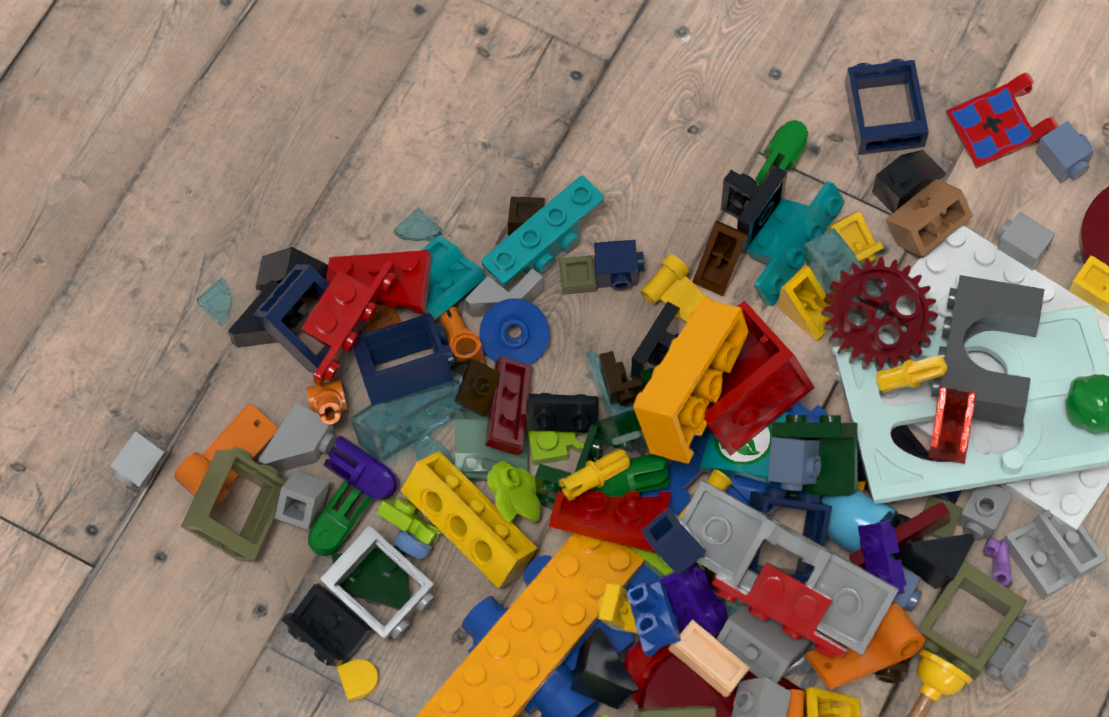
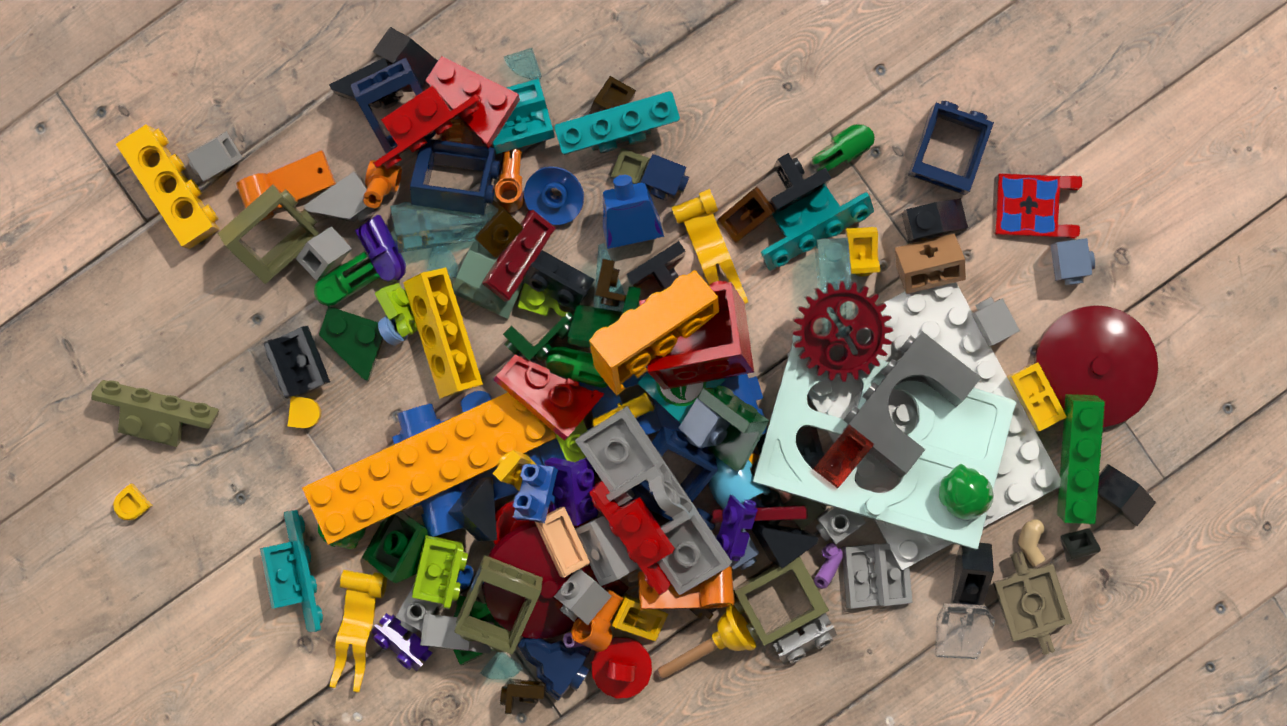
camera: 30 degrees right, 20 degrees up
(143, 548) = (136, 151): none -> yellow brick
(216, 301) = (337, 48): clear light blue tile -> none
(348, 563) = (313, 337): light grey window -> none
(490, 293) = (550, 156): light grey slope -> none
(514, 492) = (487, 329): lime plate -> none
(594, 473) = (548, 357): yellow axle -> none
(601, 310) = (629, 214): none -> blue torso
(673, 541) = (576, 447): dark blue brick -> none
(803, 302) = (794, 285): yellow slope -> none
(911, 373) = (837, 396): yellow axle -> none

